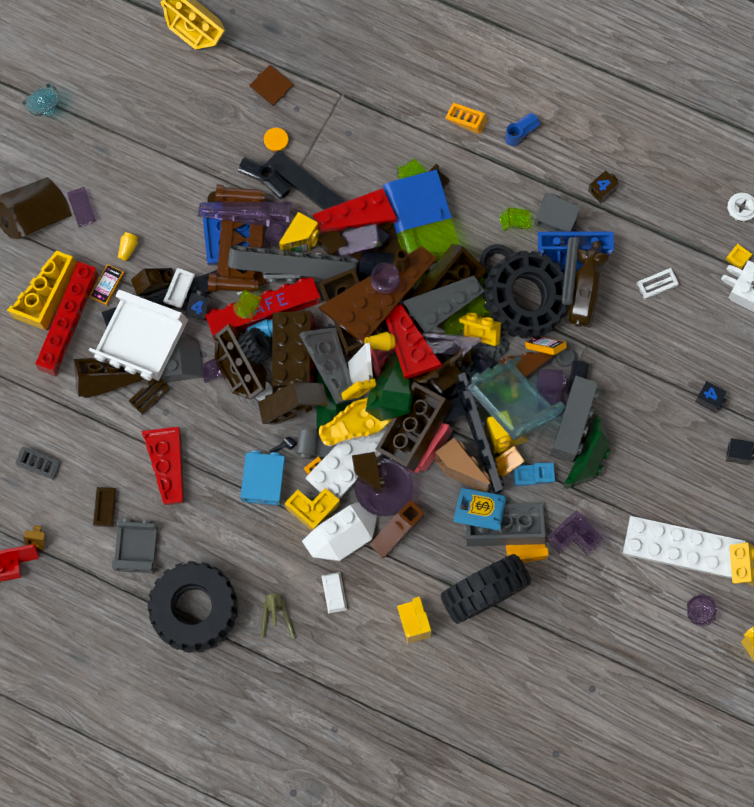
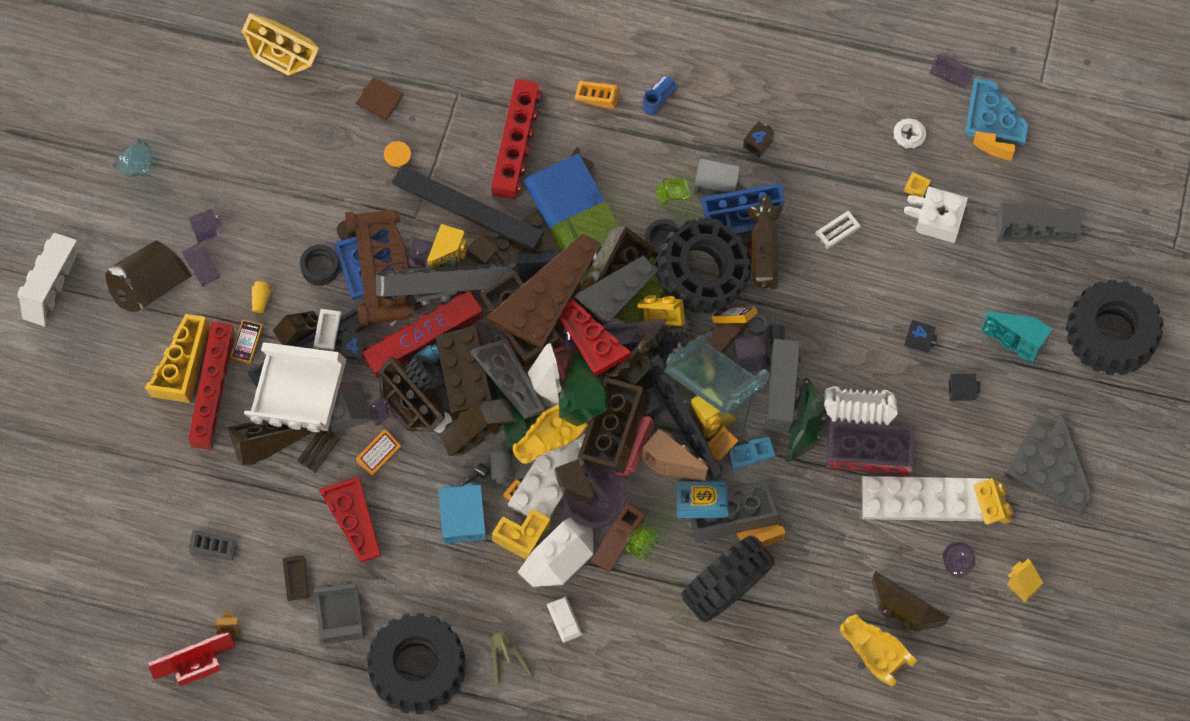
camera: 15 degrees left, 5 degrees down
(92, 172) = (205, 225): none -> clear purple brick
(178, 215) = (316, 250): none -> black tyre
(201, 408) = (378, 452): none -> slope
(246, 212) = (384, 236): clear purple wedge -> none
(247, 305) = (405, 333): clear neon green bracket -> none
(274, 182) = (406, 199): black piece -> none
(358, 389) = (546, 397): yellow tile -> none
(360, 240) = (513, 241): clear purple panel -> none
(364, 210) = (511, 209): red wing -> none
(381, 341) = (562, 341): yellow cone -> none
(385, 278) = (552, 273): clear purple hair -> none
(398, 103) = (522, 92): none -> red brick
(401, 260) = (564, 252): dark brown cone -> none
(410, 169) = (548, 159): clear neon green bracket -> none
(414, 620) = (658, 631): yellow panel -> none
(418, 536) = (642, 542): none -> clear neon green slope
(570, 271) = (744, 231): dark grey axle -> none
(575, 530) = (809, 502): clear purple brick -> none
(609, 678) = (877, 649): none -> yellow animal
(641, 451) = (860, 405): none -> white piece
(642, 491) = (870, 448): none -> brick
(643, 644) = (904, 606): none -> dark brown wedge

